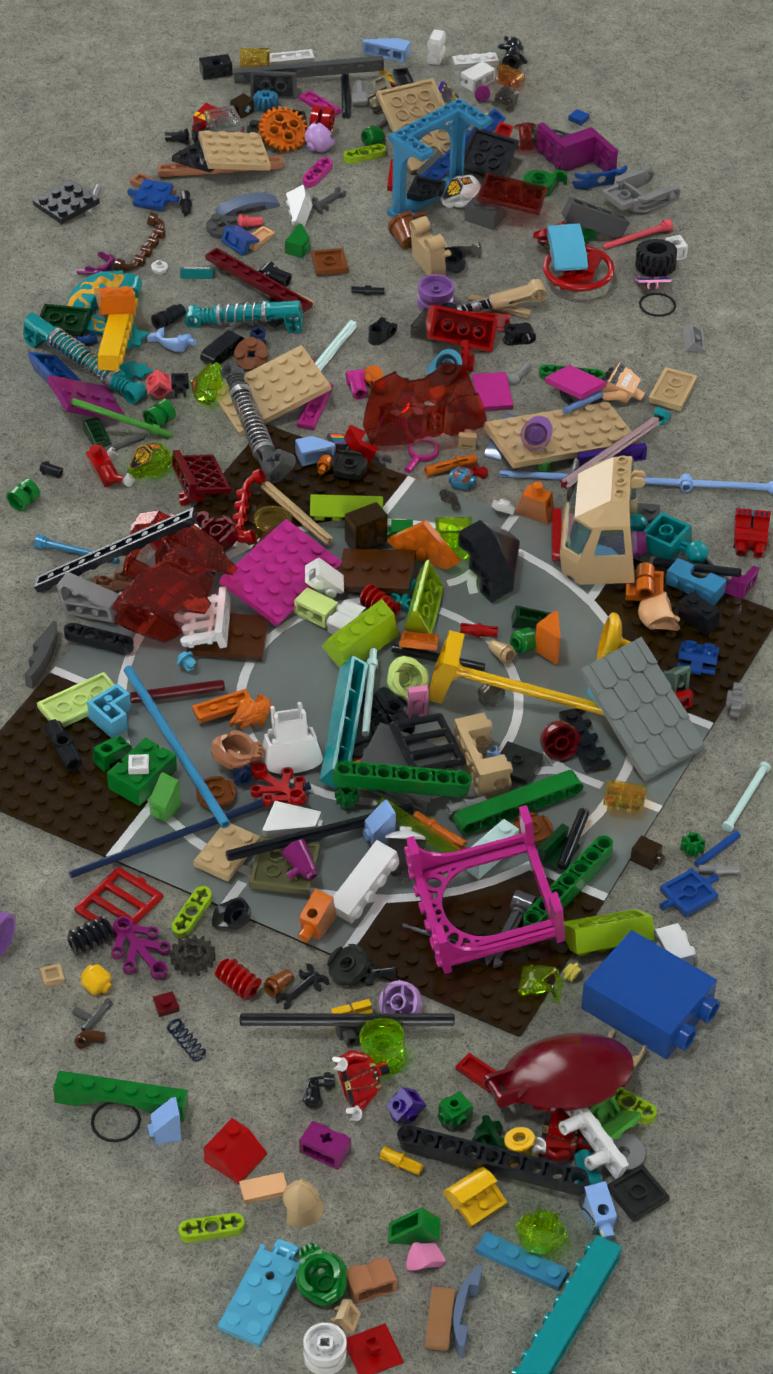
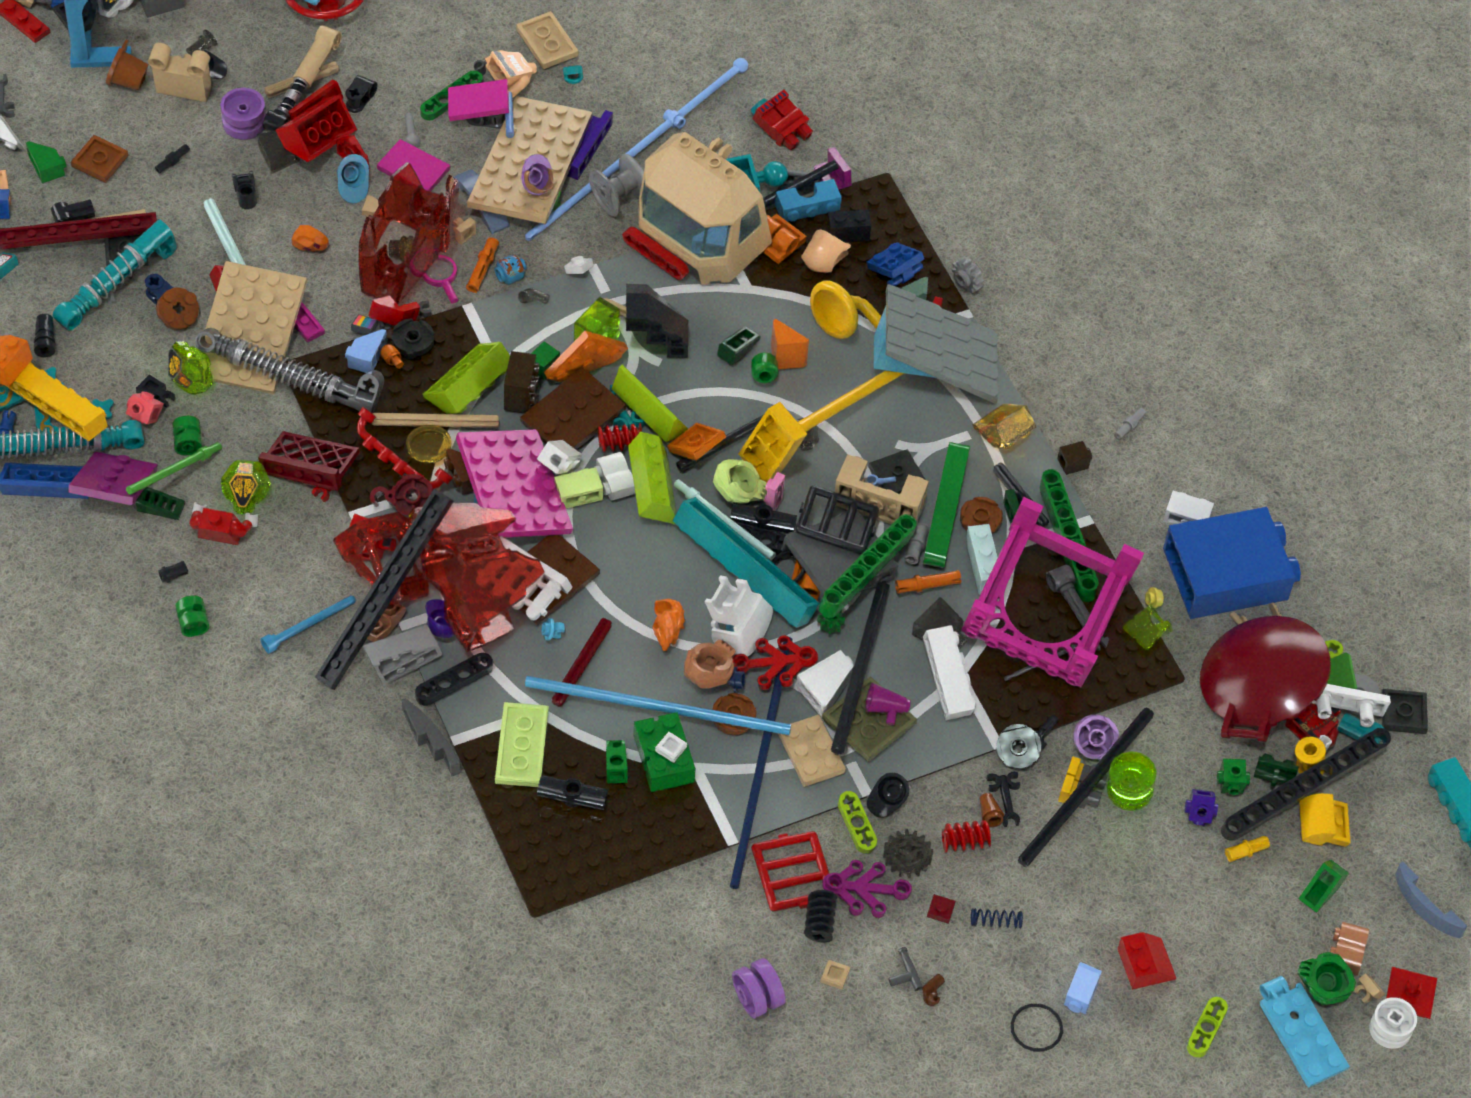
camera: 55 degrees left, 10 degrees up
(82, 1089) = (998, 1023): green arch -> none
(96, 979) = (874, 943): yellow head -> none
(110, 709) = (569, 732): medium azure brick -> none
(126, 442) = (191, 492): flat silver bar -> none
(165, 797) = (718, 754): bright green slope -> none
(176, 344) = (92, 358): light blue animal -> none
(219, 706) = (635, 639): orange plate -> none
(221, 348) = (139, 325): black beam -> none
(262, 1188) = (1196, 963): light nougat tile -> none
(302, 1203) = (1237, 943): tan helmet -> none
(312, 1095) = (1131, 867): black piece -> none
(316, 916) = (955, 733): orange torso -> none
(325, 1145) = (1192, 890): magenta brick -> none
(356, 381) = (295, 254): dark pink piece -> none
(359, 1079) = (1152, 822): red torso -> none
(380, 823) = (892, 617): light blue slope -> none
(404, 833) = (920, 609): white dish -> none
(418, 827) = (916, 593): clear neon green axle -> none
(424, 1256) = (1356, 897): bright pink tile -> none
(440, 1319) = (1421, 925): medium nougat beam -> none
(474, 1070) = (1199, 734): red tile -> none
(479, 630) = (718, 390): red pin -> none
(481, 472) = (511, 248): red piece -> none
(502, 651) = (759, 392): tan cone -> none
(521, 1261) = (1405, 833): dark azure plate -> none
(536, 503) = (601, 239): orange torso -> none
(541, 1232) = (1397, 807): clear neon green helmet -> none
(559, 740) = (905, 425): dark red cylinder -> none
(587, 751) = (912, 410): black hinge -> none
(598, 1209) = (1408, 748): light blue torso -> none
(606, 930) = (1143, 529): lime slope -> none
(612, 450) = (602, 142): axle -> none
(689, 892) = (1138, 460): blue plate -> none
(692, 844) = (1092, 420): green gear -> none
(717, 849) = (1106, 408): blue bar -> none
(728, 825) = (1089, 381): light aqua bar -> none

